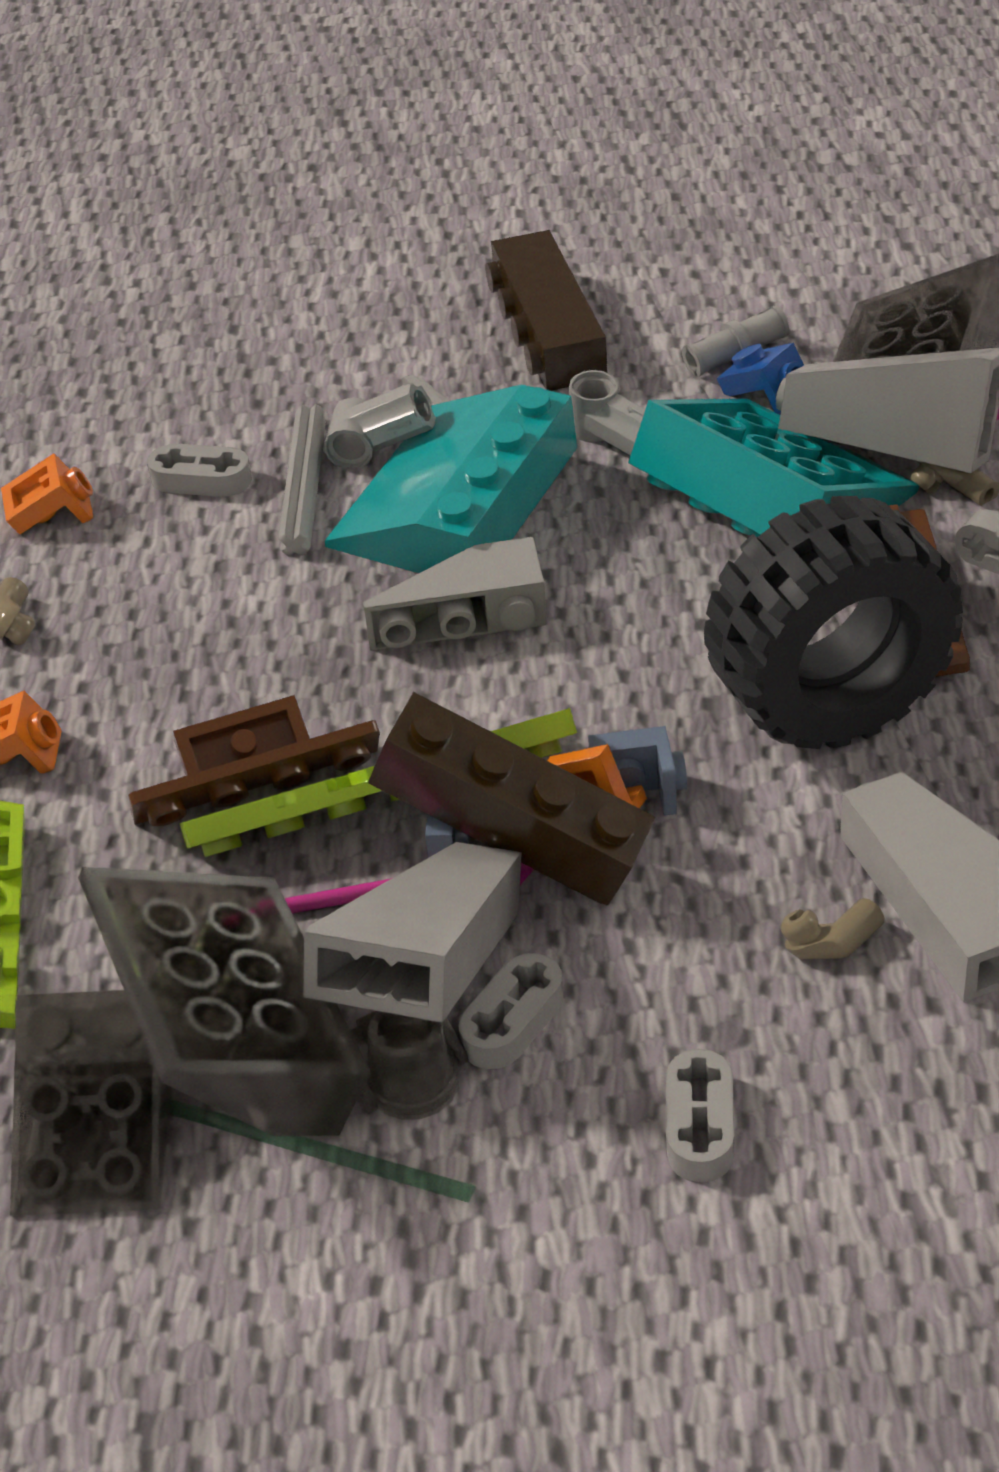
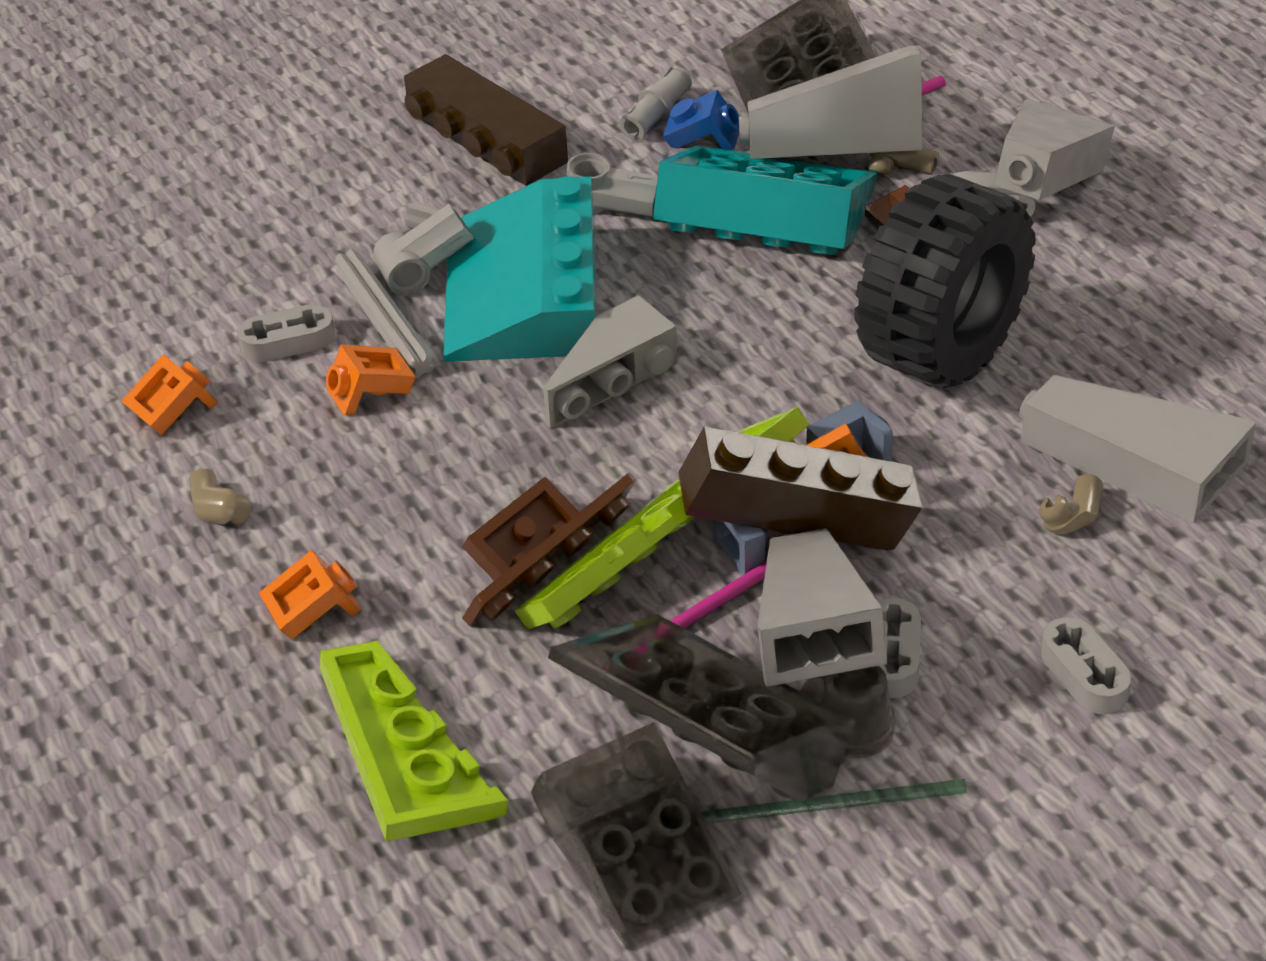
camera: 30 degrees left, 0 degrees up
(234, 532) = (366, 370): none -> orange bracket

